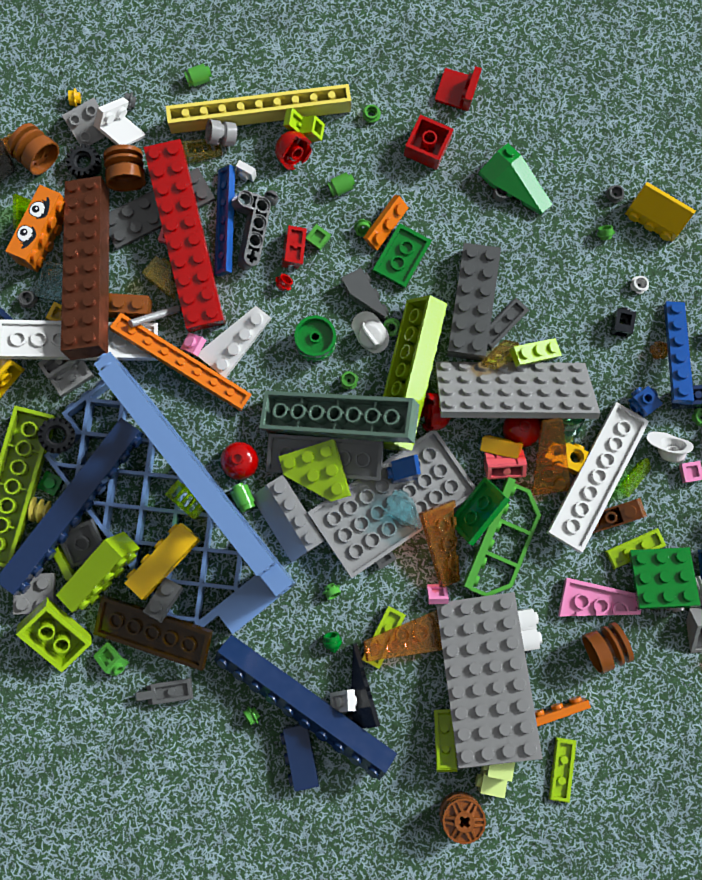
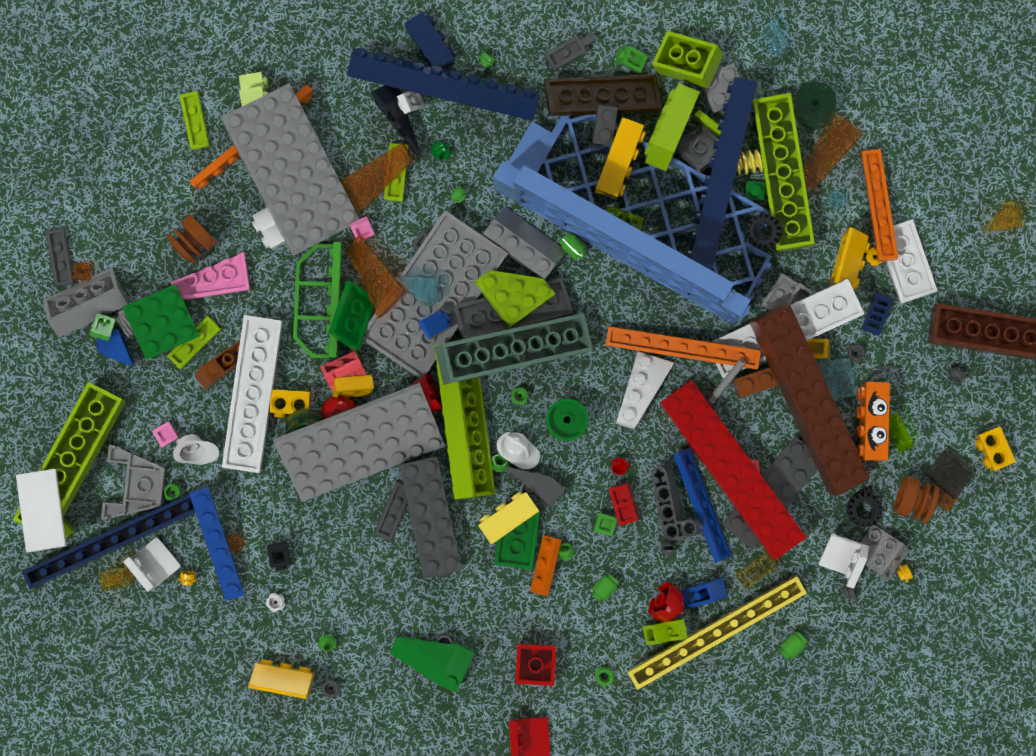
camera: 165 degrees right, 5 degrees up
(124, 168) = (819, 515): dark orange wheel -> none
(161, 276) = (738, 424): clear yellow slope -> none
(193, 344) = (680, 371): bright pink plate -> none
(221, 133) = (741, 591): light grey wheel -> none
(239, 460) = (591, 279): red cylinder -> none
(245, 171) = (703, 562): white plate -> none
(255, 145) = (704, 593): none -> blue slope
(403, 272) = (507, 517): none -> light yellow brick
(445, 742) = (306, 97): lime tile -> none
(458, 805) = (271, 56): dark orange wheel -> none
(500, 355) = (383, 475): clear yellow slope -> none
(535, 352) = (353, 489): plate -> none
(551, 460) = (300, 386): clear orange wing -> none
(635, 477) = (216, 409): clear neon green slope -> none
(644, 401) = (226, 480): blue brick -> none

